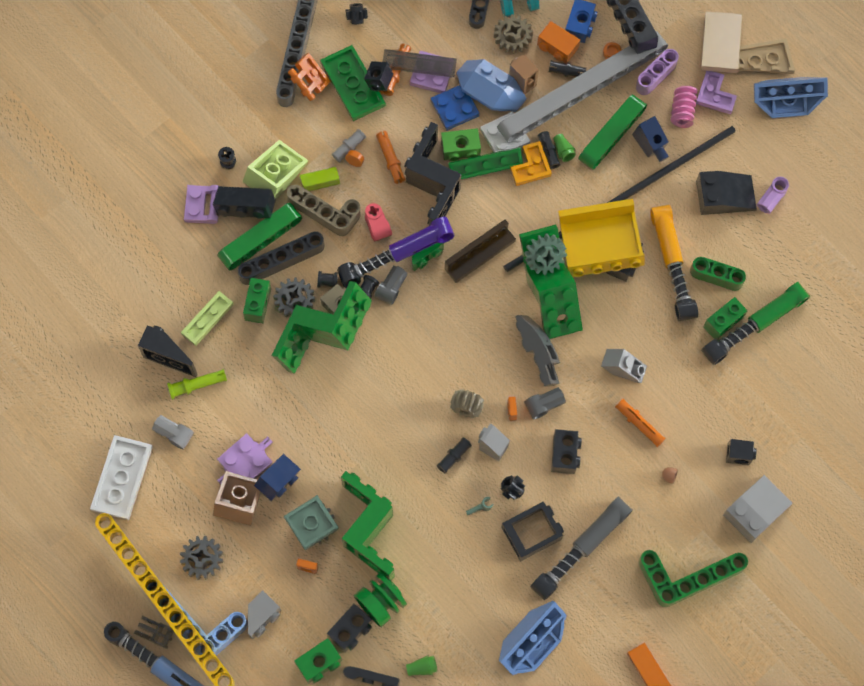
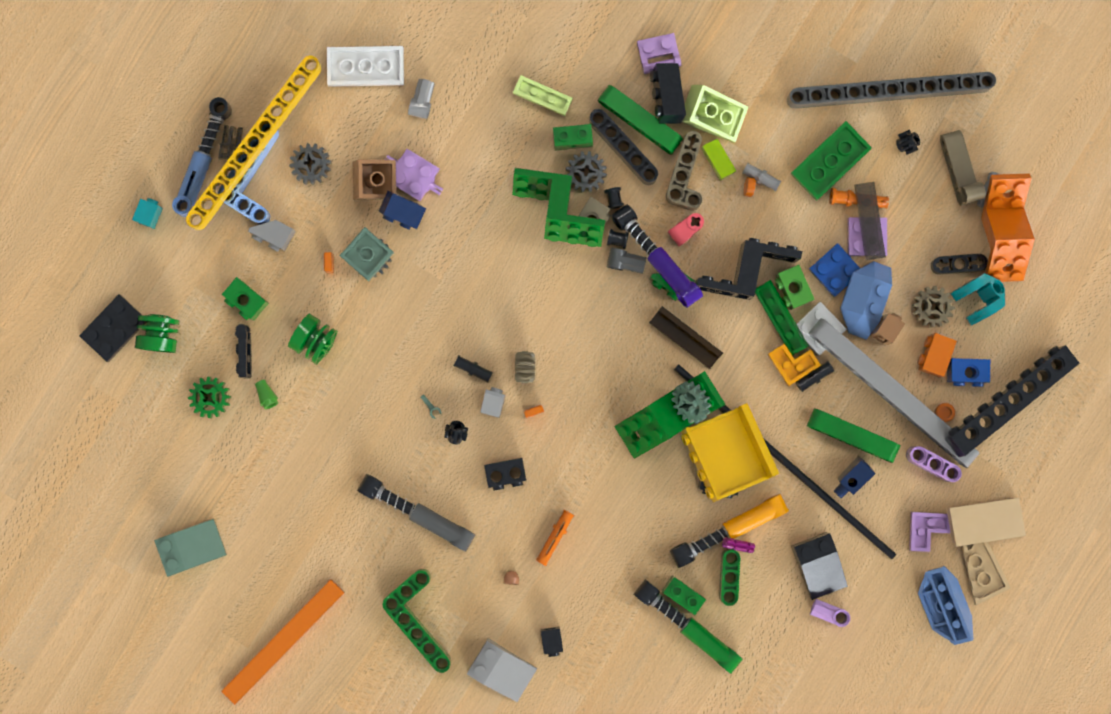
camera: 70 degrees right, 15 degrees up
(160, 348) = (497, 64): black slope -> none
(187, 386) = (470, 97): lime pin -> none
(222, 157) = (713, 56): black bush -> none
(312, 73) = (826, 118): orange plate -> none
(345, 624) = (284, 315): black brick -> none
(368, 525) = (379, 308): green bracket -> none
(378, 76) = (847, 184): black brick -> none
(393, 163) = (755, 226): orange pin -> none
(514, 539) = (405, 448): black window -> none
(533, 639) = (315, 488): medium blue wedge -> none
(537, 342) = (606, 419): dark grey slope -> none
(540, 404) = (546, 437): dark grey piece -> none
(564, 148) = (821, 391): bright green cone -> none
(566, 69) = (909, 372): black pin -> none
(624, 365) = (608, 507): light grey slope -> none
(683, 106) = (900, 499): bright pink piece -> none
(690, 256) = (738, 545): none -> magenta axle

